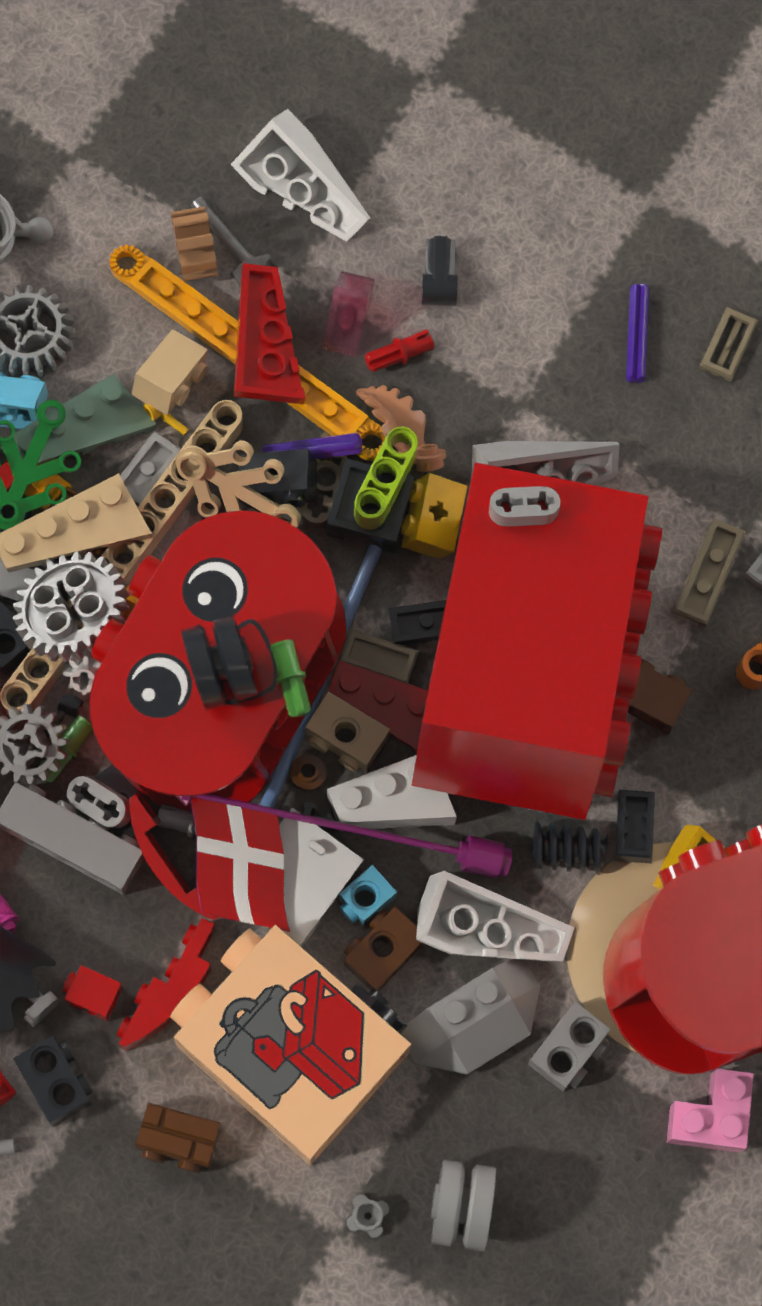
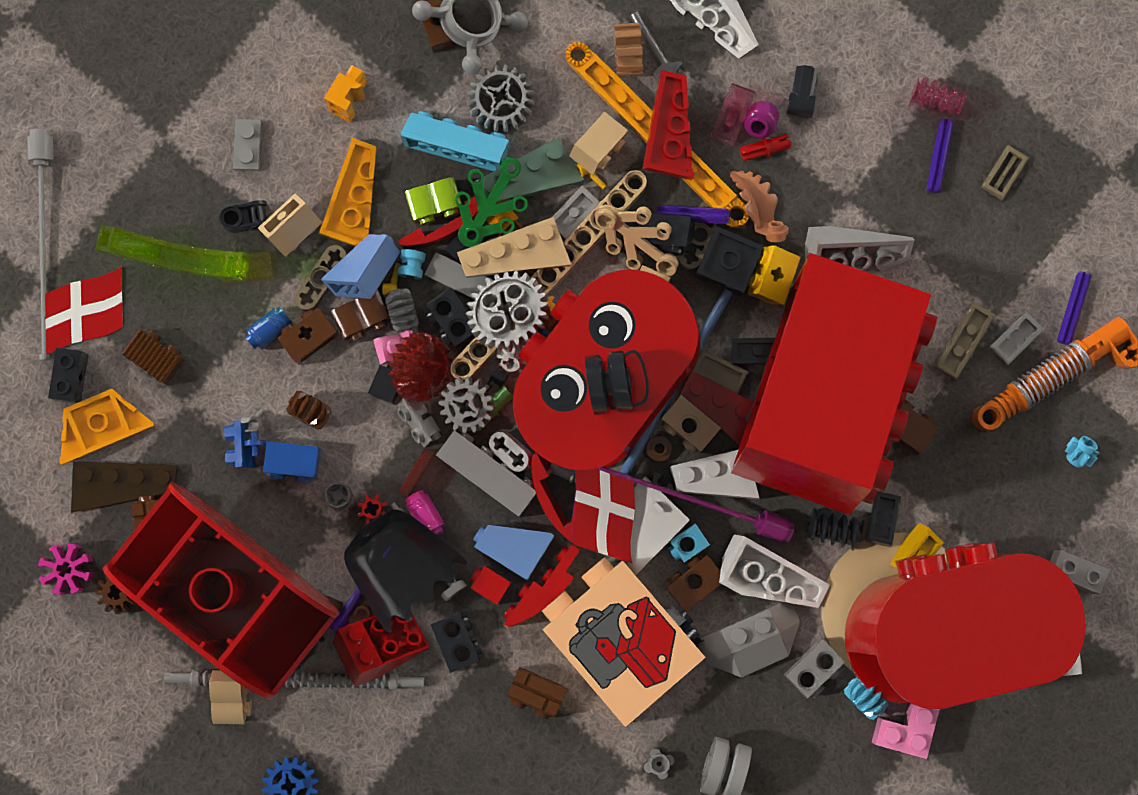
camera: 15 degrees right, 10 degrees up
(120, 935) = (513, 547): none -> medium blue slope
(290, 678) = (657, 398): bright green axle -> none
(385, 462) = (748, 235): lime beam -> none
(388, 314) = (761, 119): none -> magenta head
(524, 506) = (838, 287): light grey beam -> none
(622, 256) = (938, 97): none -> clear pink piece
(647, 1079) = (867, 702): none -> medium azure gear

